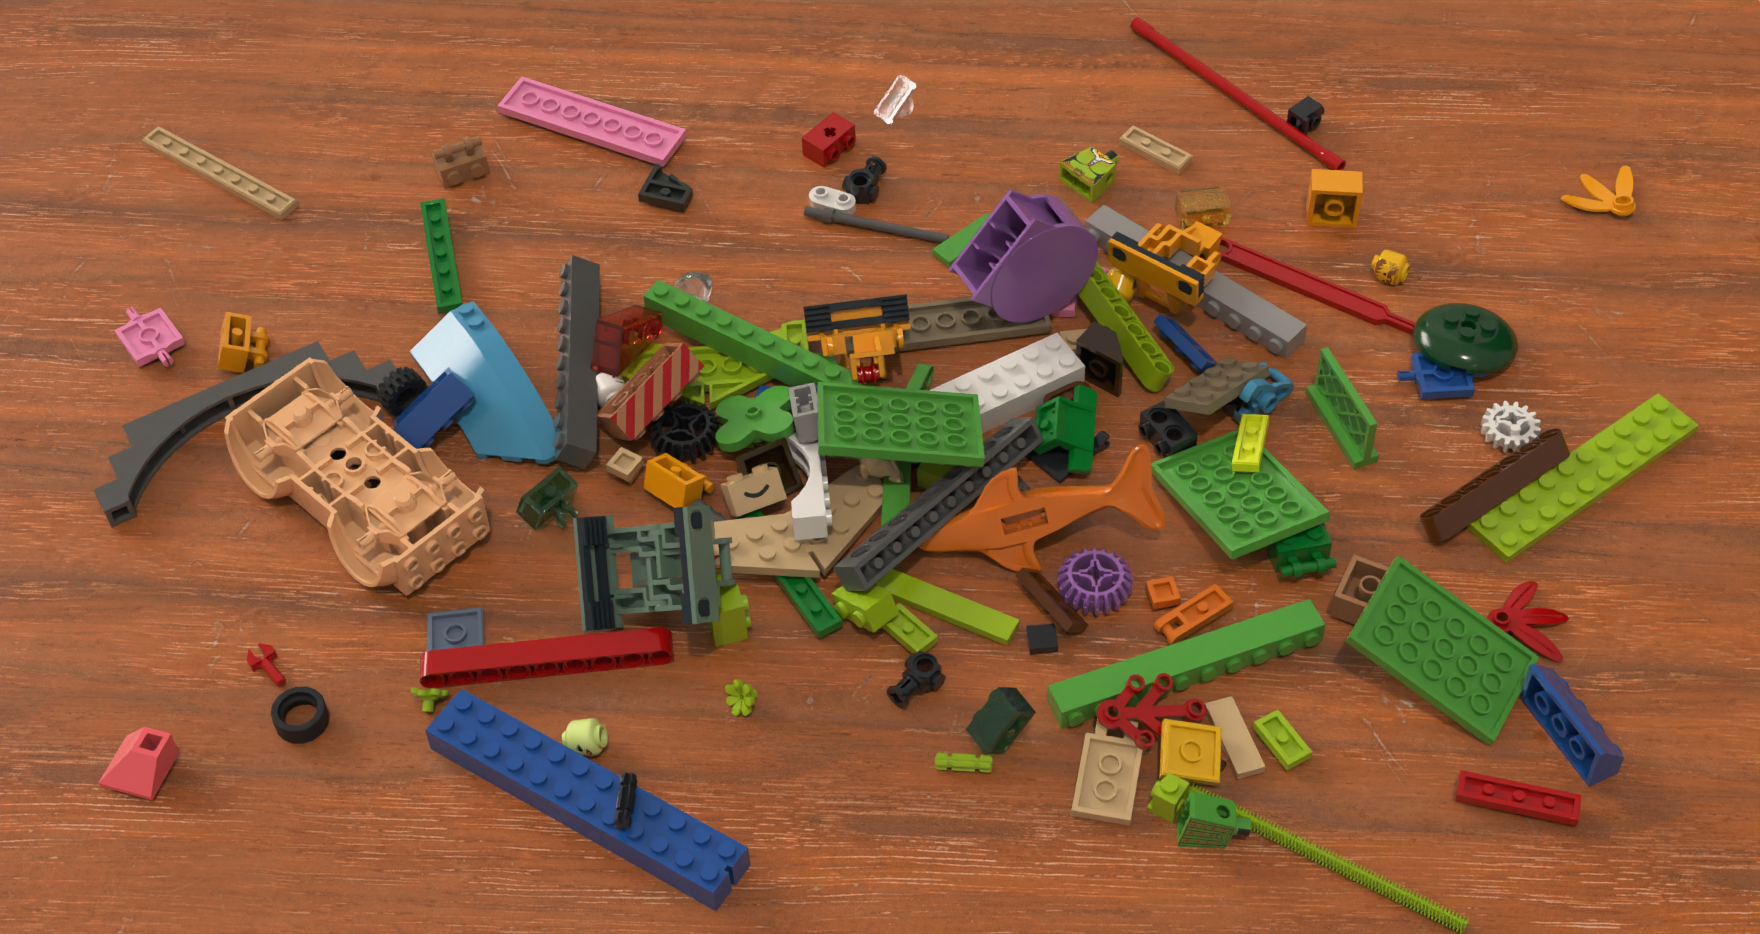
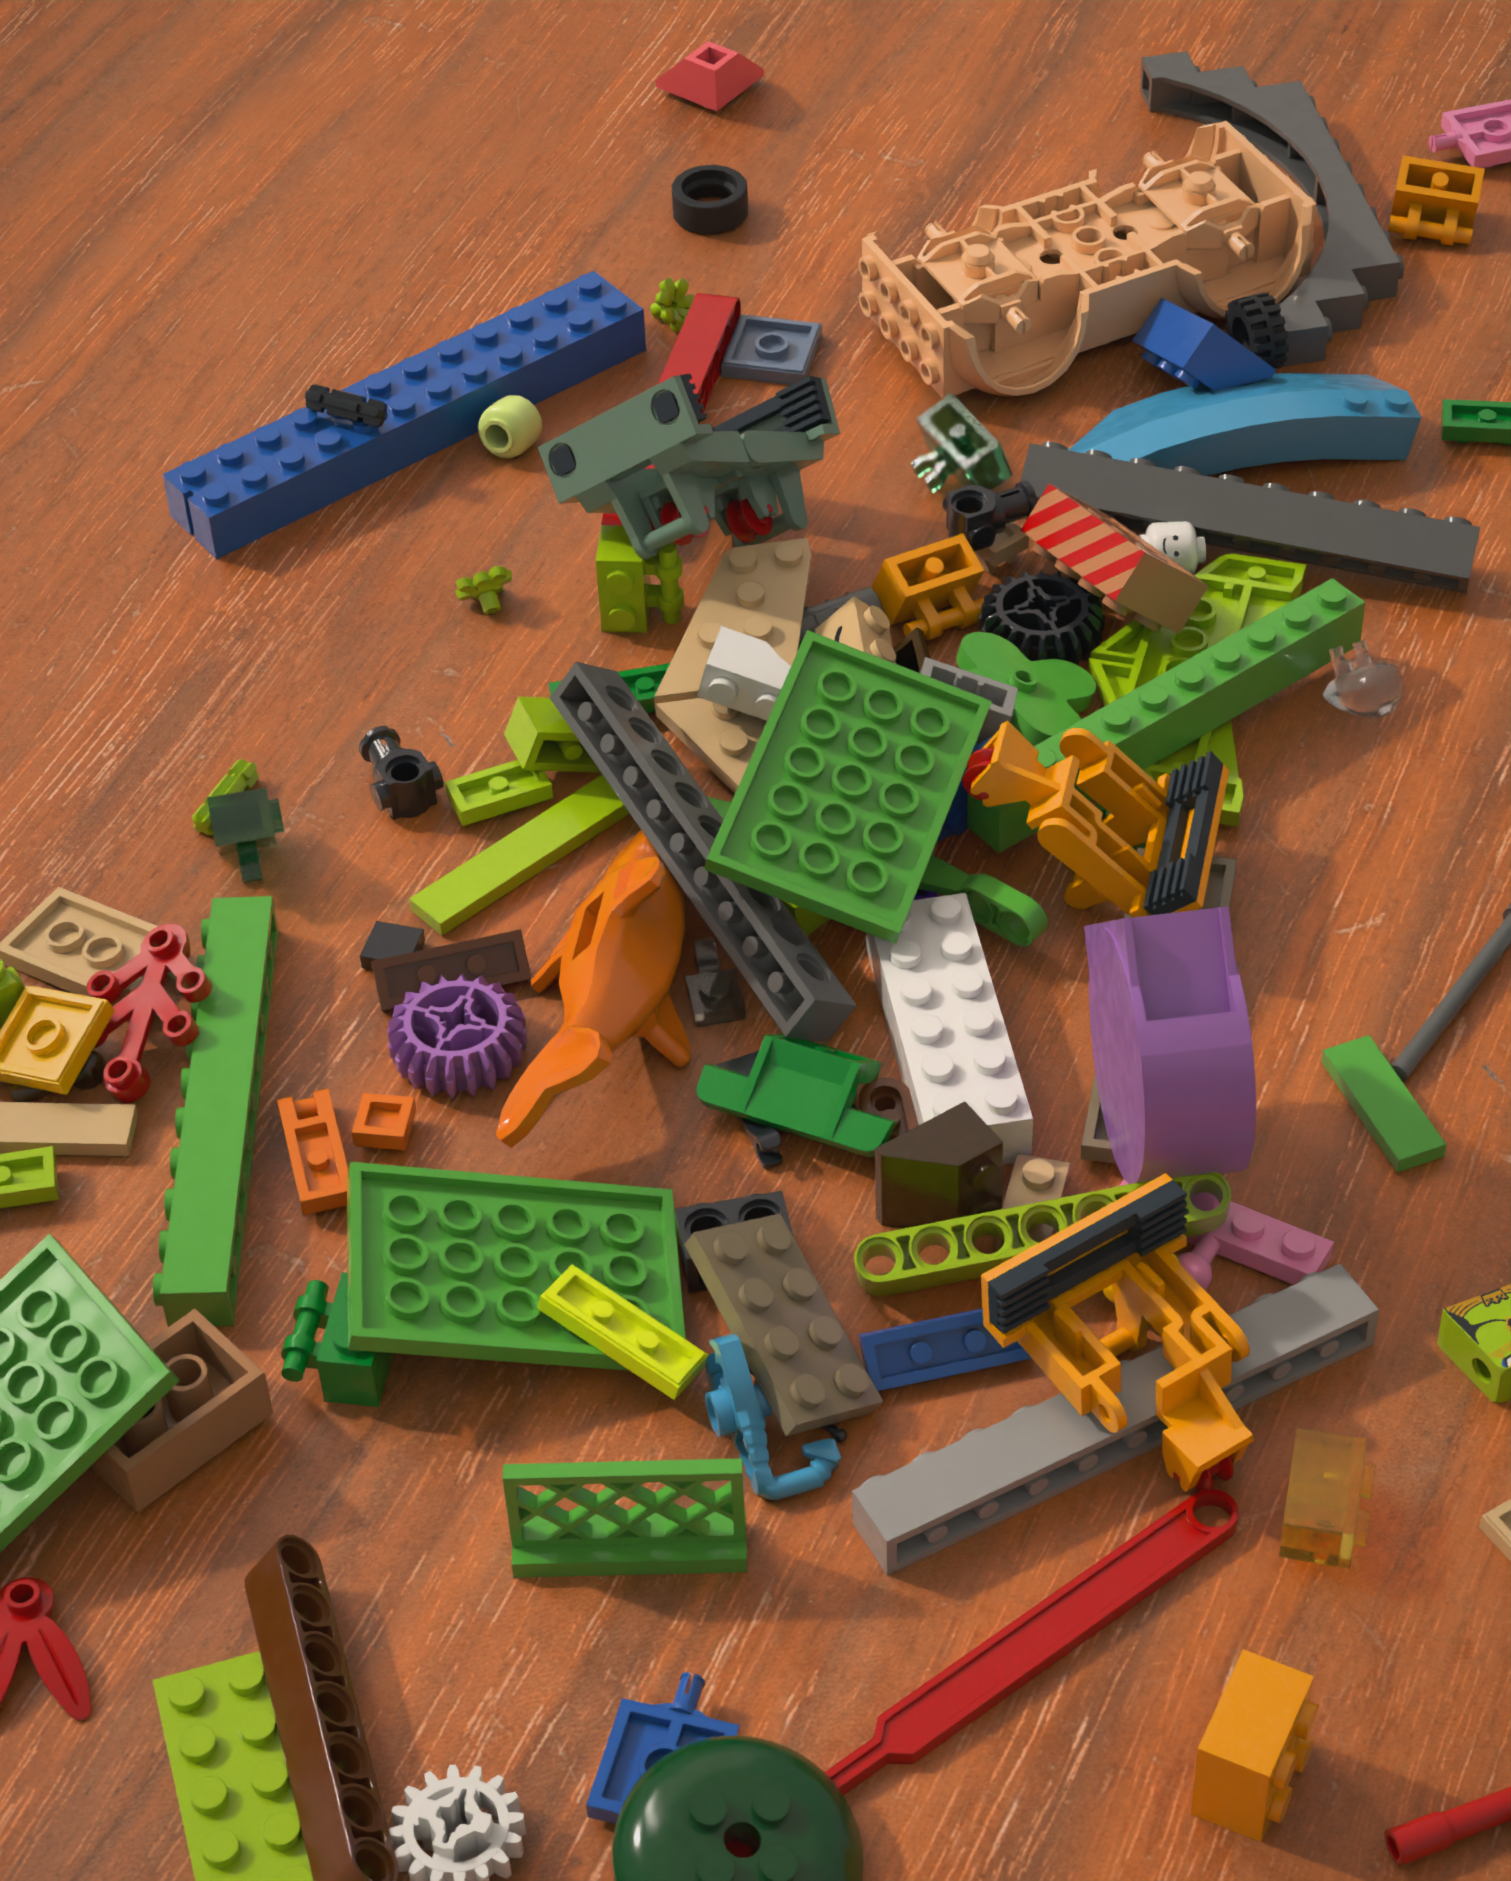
camera: 110 degrees right, 5 degrees down
(267, 663) = (831, 183): red bar -> none
(623, 338) = (1251, 548): clear red wedge -> none
(627, 458) = (984, 513): none -> black connector
(1390, 267) = (1016, 1804): yellow head -> none

